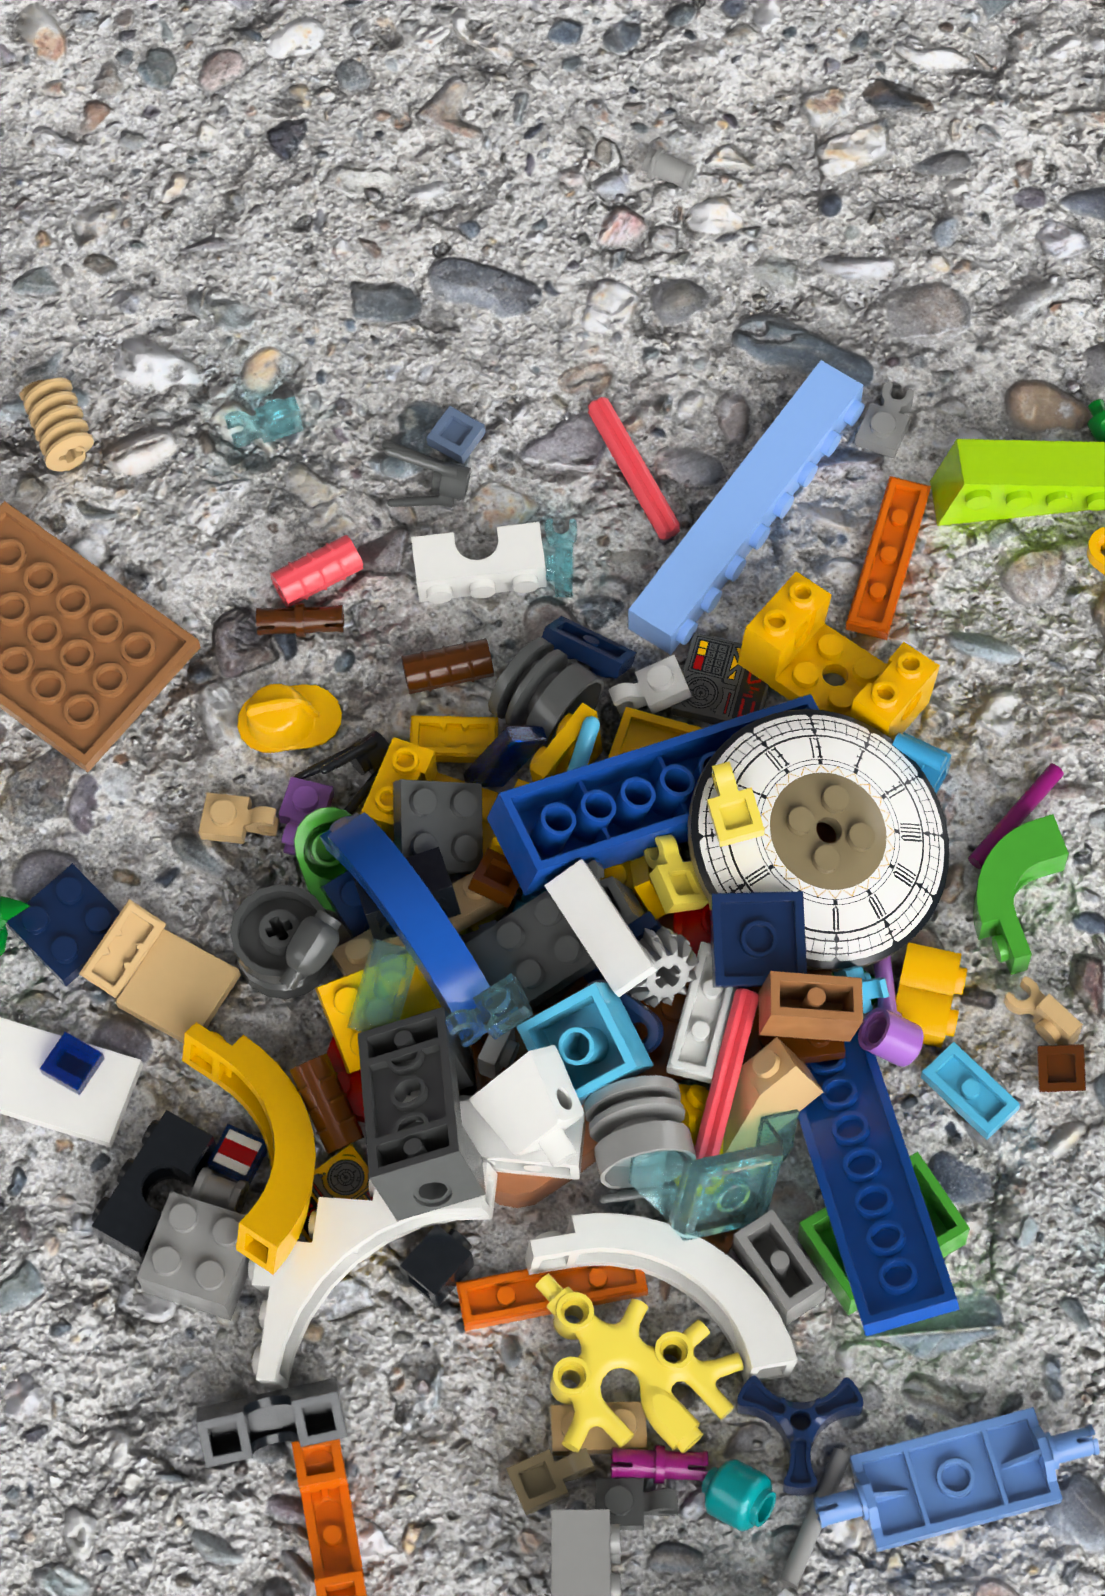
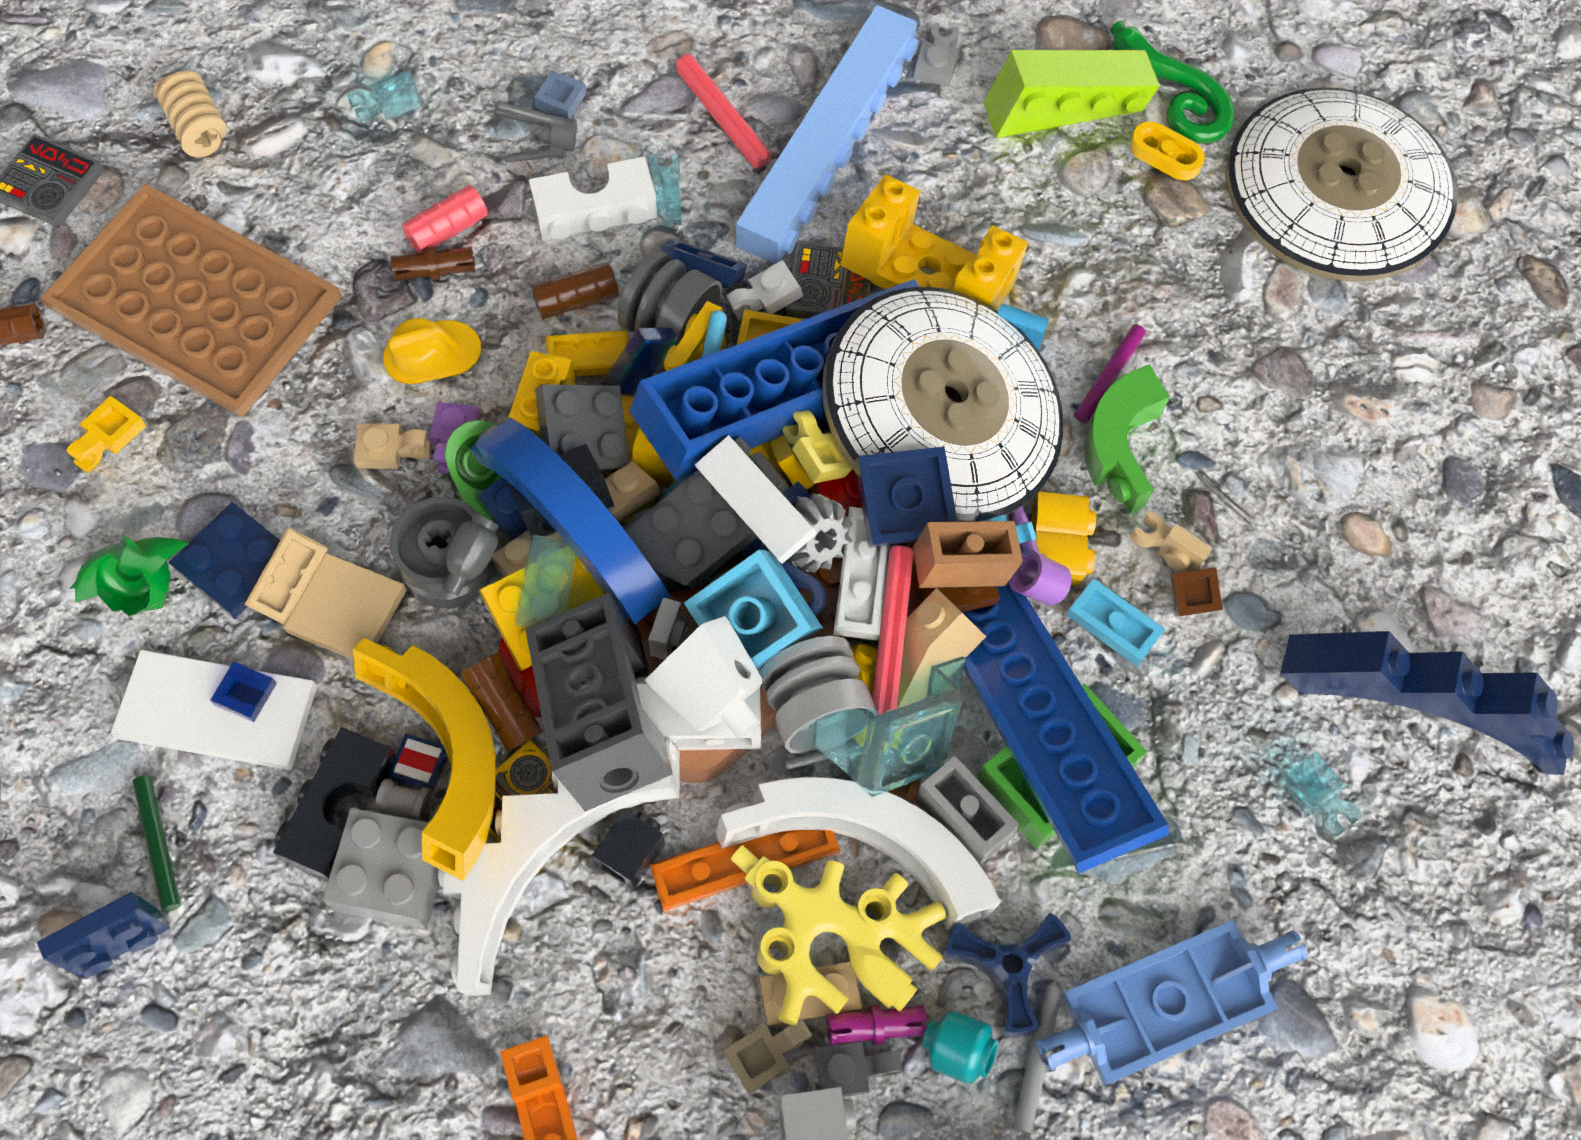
camera: 15 degrees left, 0 degrees up
(299, 1413) = (443, 1043): arch -> none
(365, 756) = (504, 376): black plant -> none
(495, 879) = (644, 469): reddish brown plate -> none
(497, 1012) = (662, 592): clear light blue plate -> none
(733, 811) = (865, 377): light yellow plate -> none
(888, 558) = (958, 167): orange tile -> none

